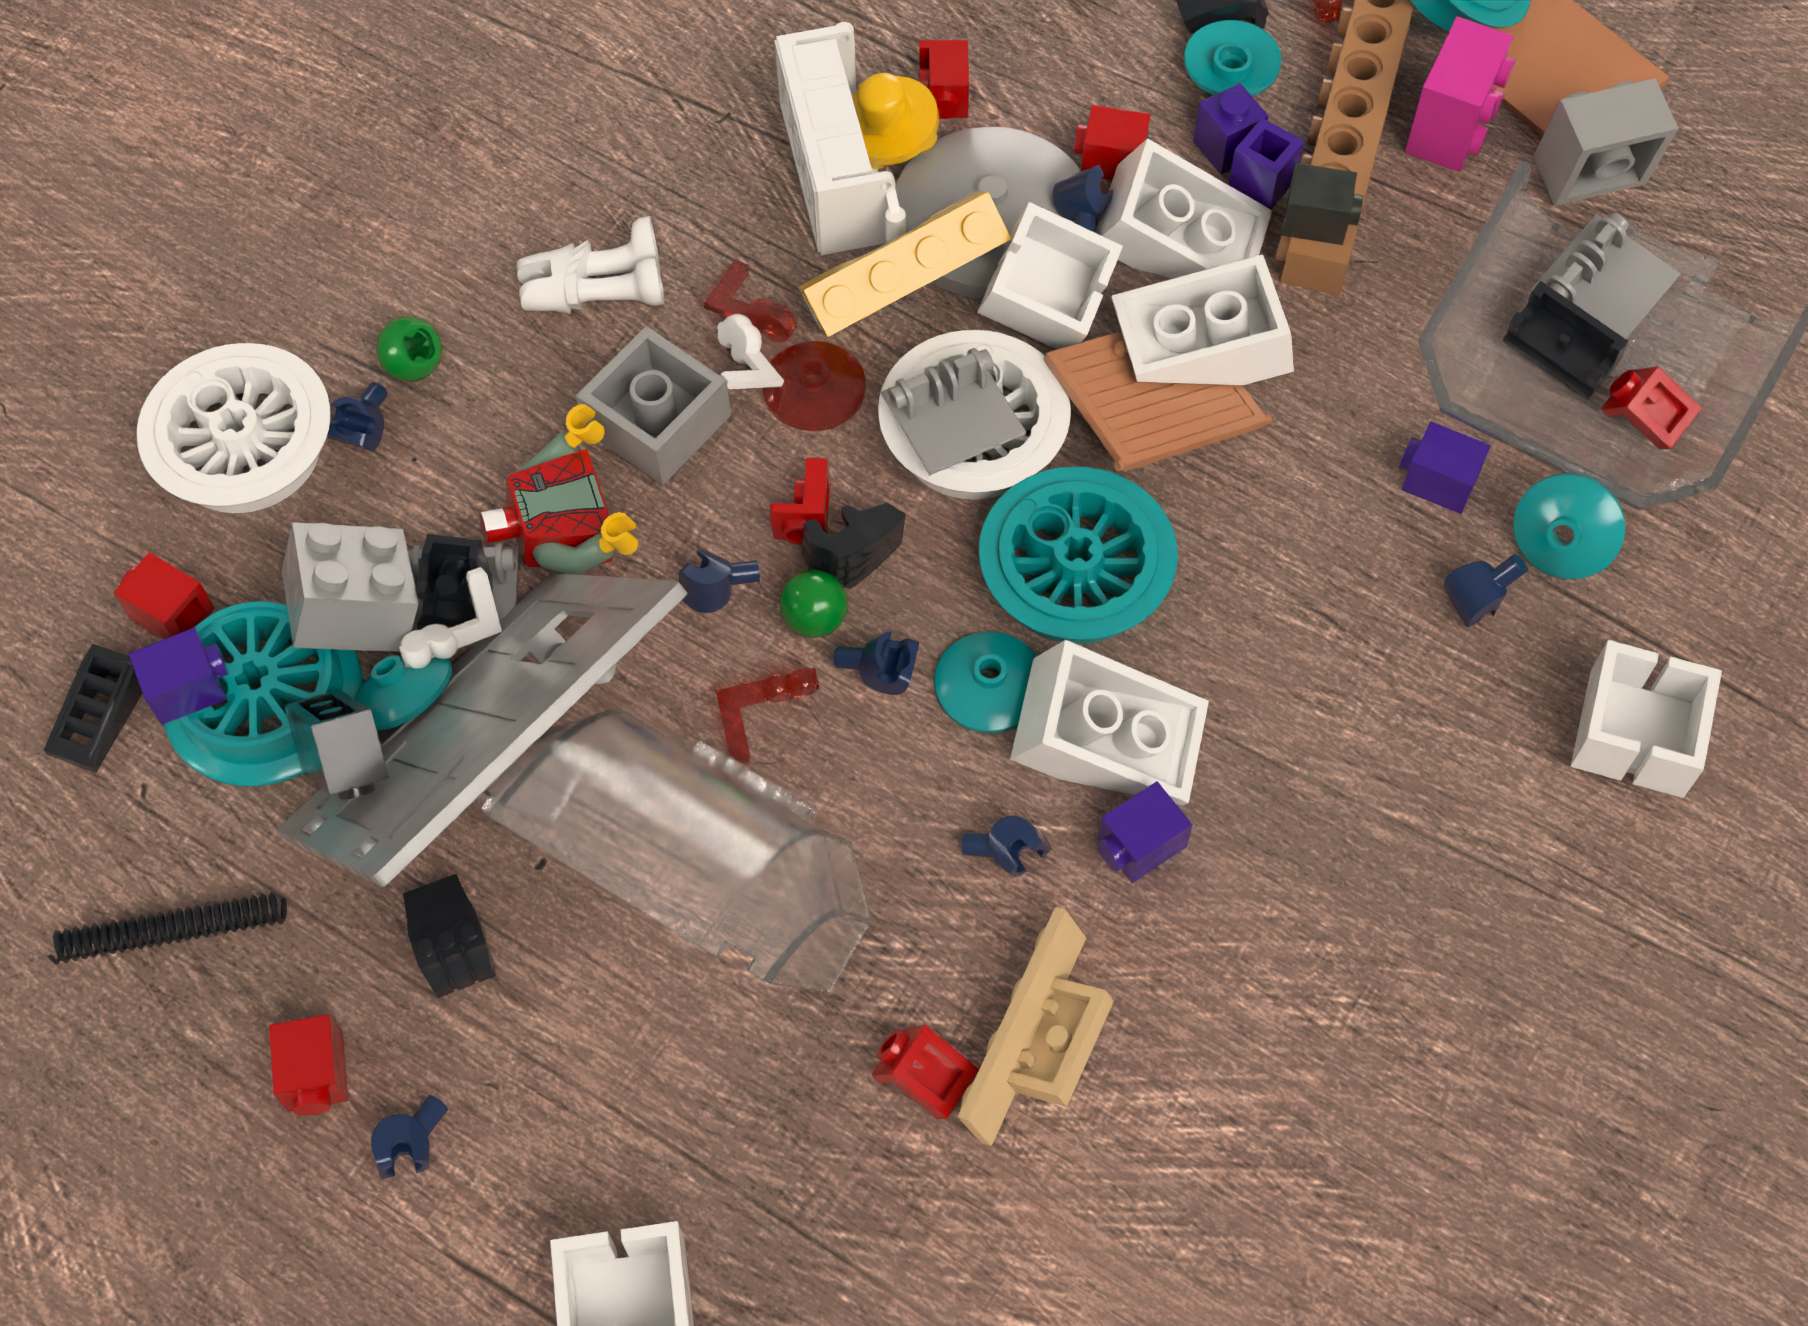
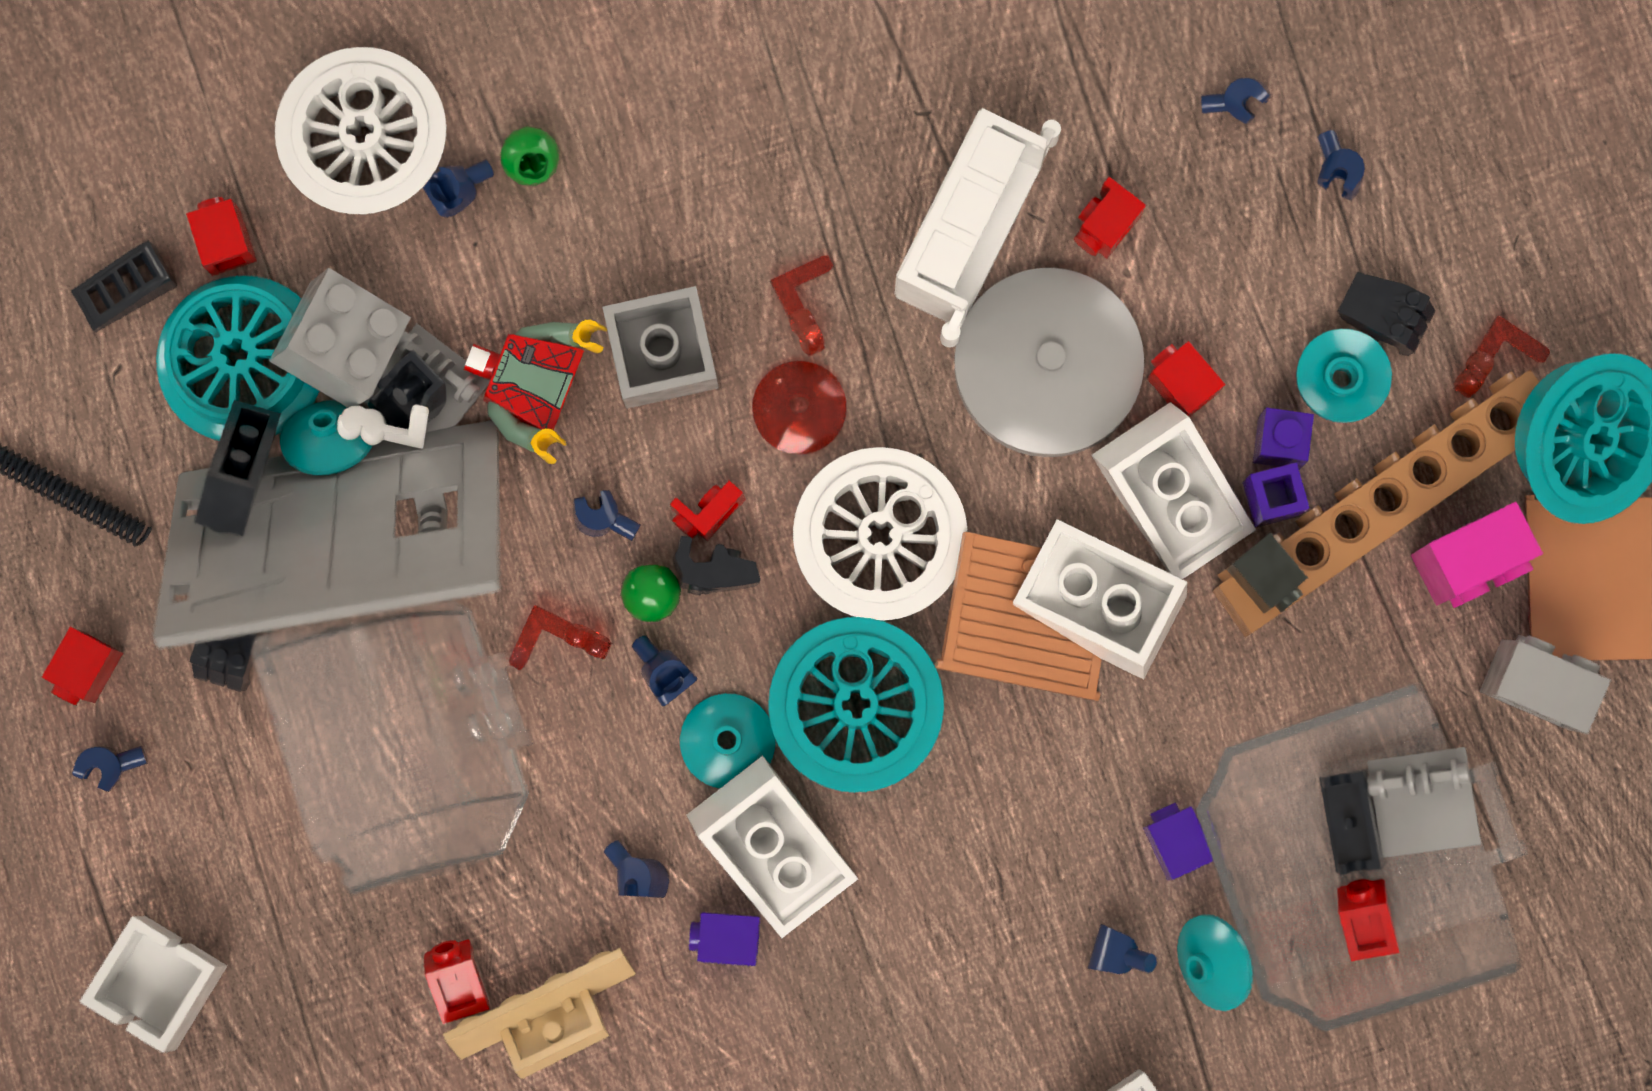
camera: 40 degrees right, 20 degrees up
(180, 675) = (179, 326): dark purple brick -> none
(563, 280) = (698, 173): white piece -> none
(745, 345) = (770, 342): white piece -> none
(895, 118) = (1032, 228): yellow plate -> none
(904, 264) = (976, 386): yellow arch -> none
(953, 411) = (856, 530): light grey hinge -> none
(1047, 276) = (1020, 470): white piece -> none
(1080, 197) = (1109, 413): dark blue piece -> none

